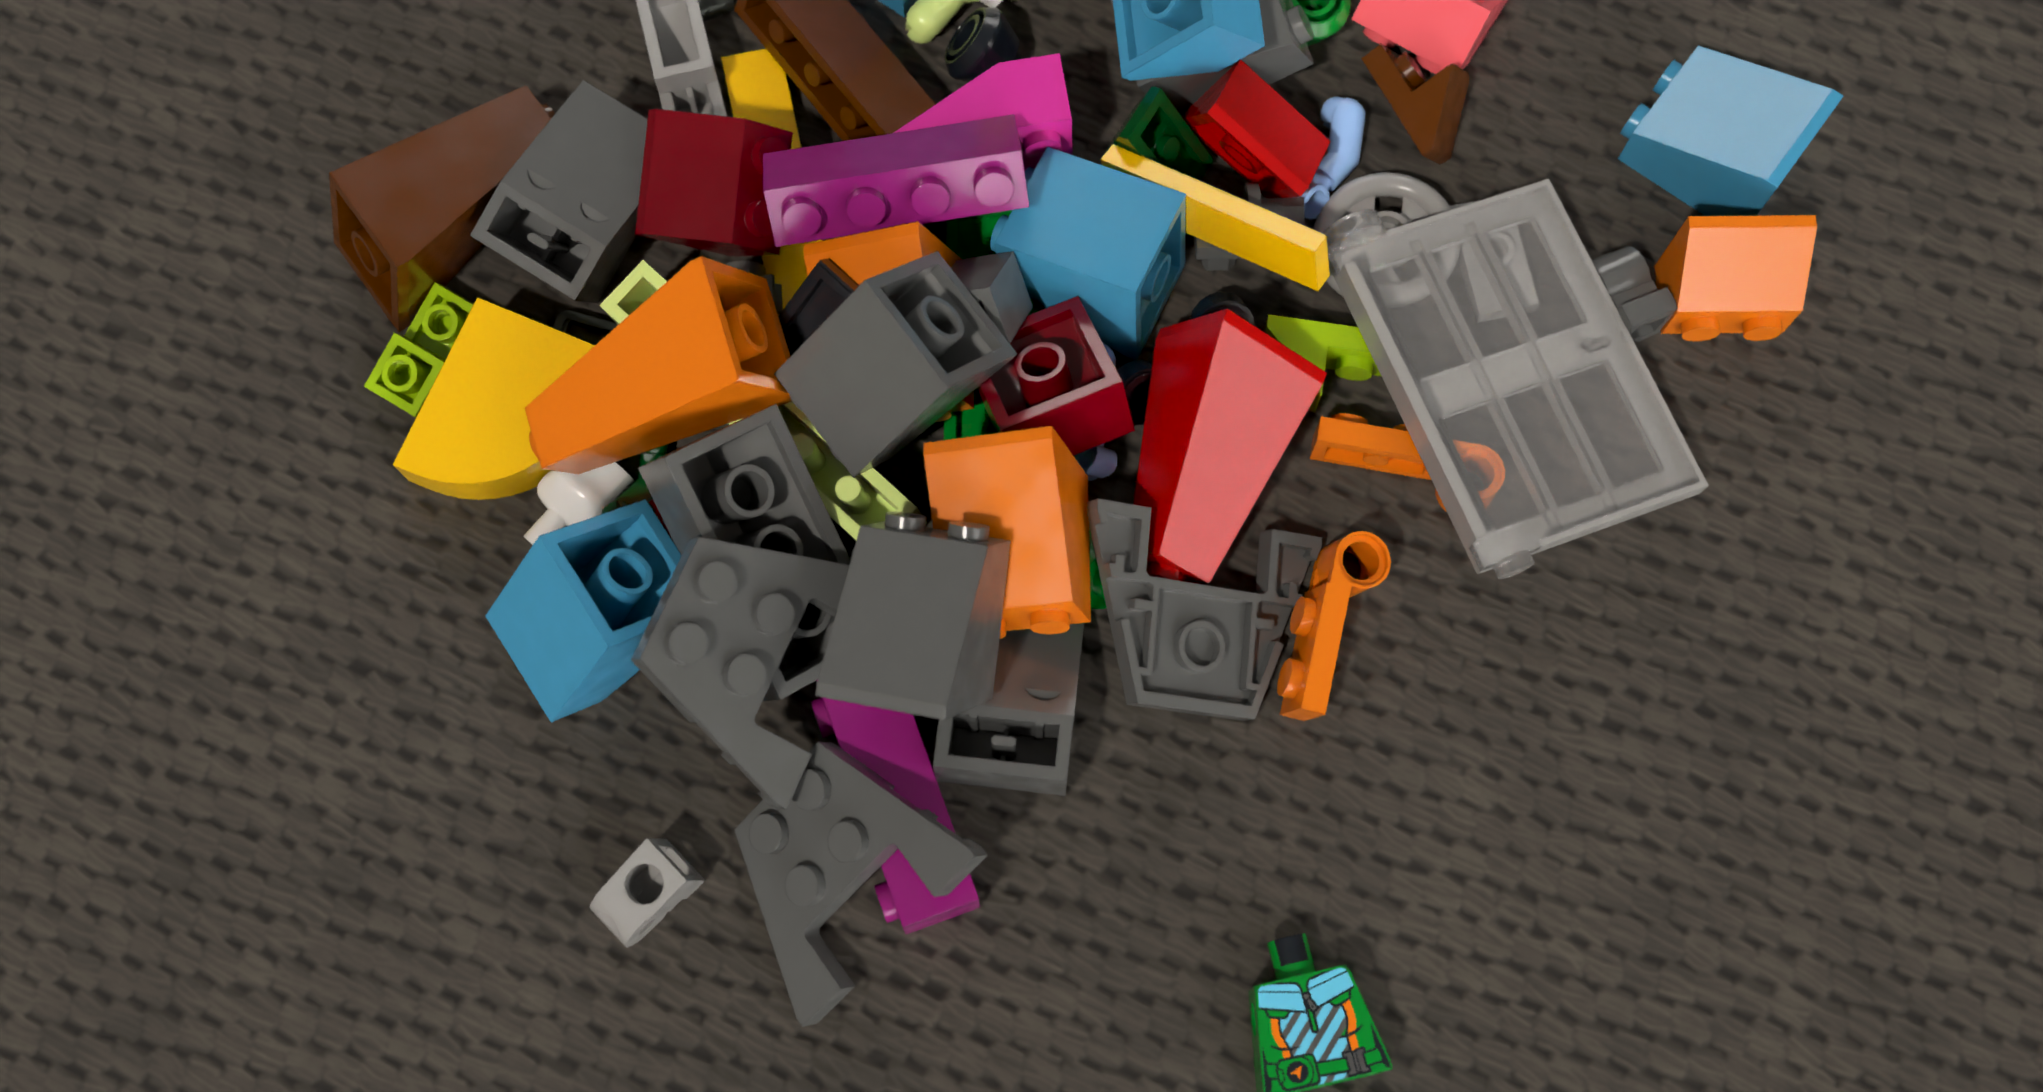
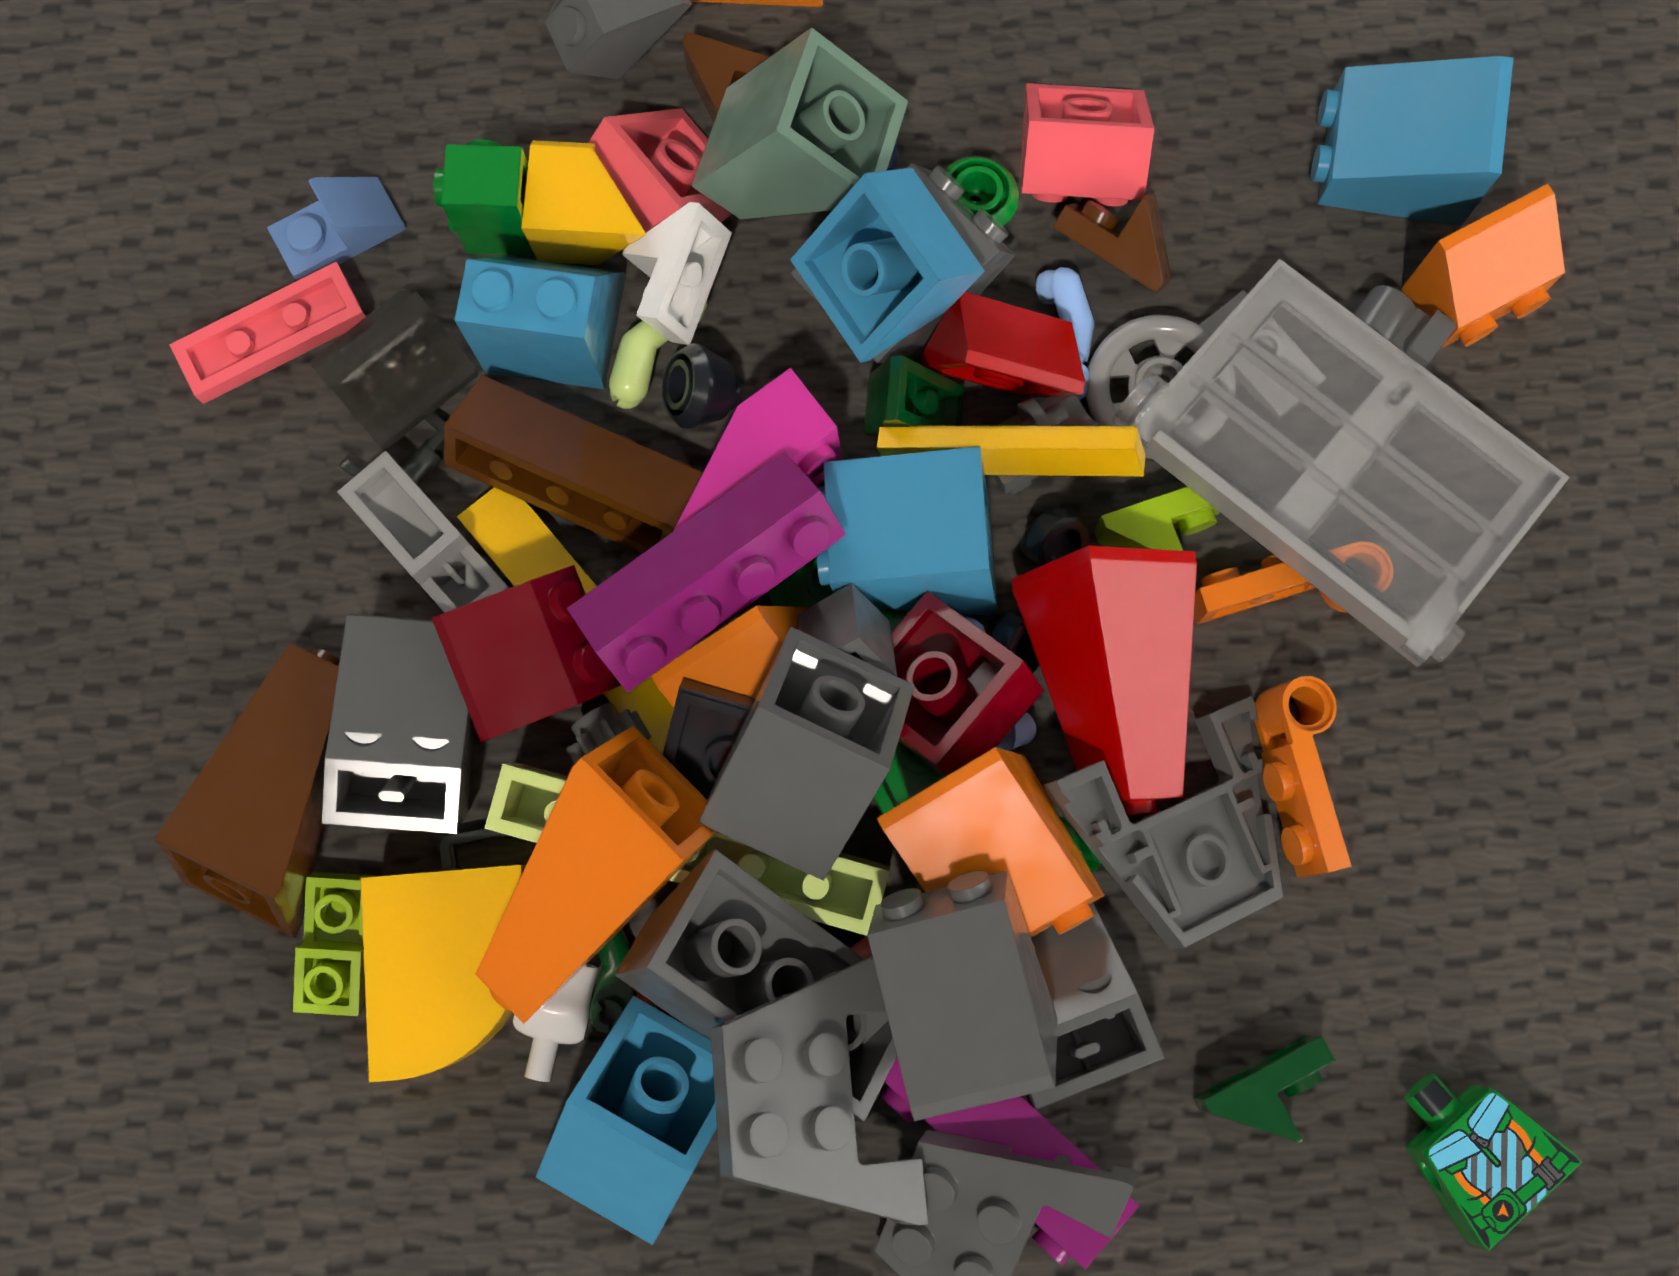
camera: 25 degrees left, 5 degrees up
(1129, 867) = (1252, 1093): none -> dark green slope

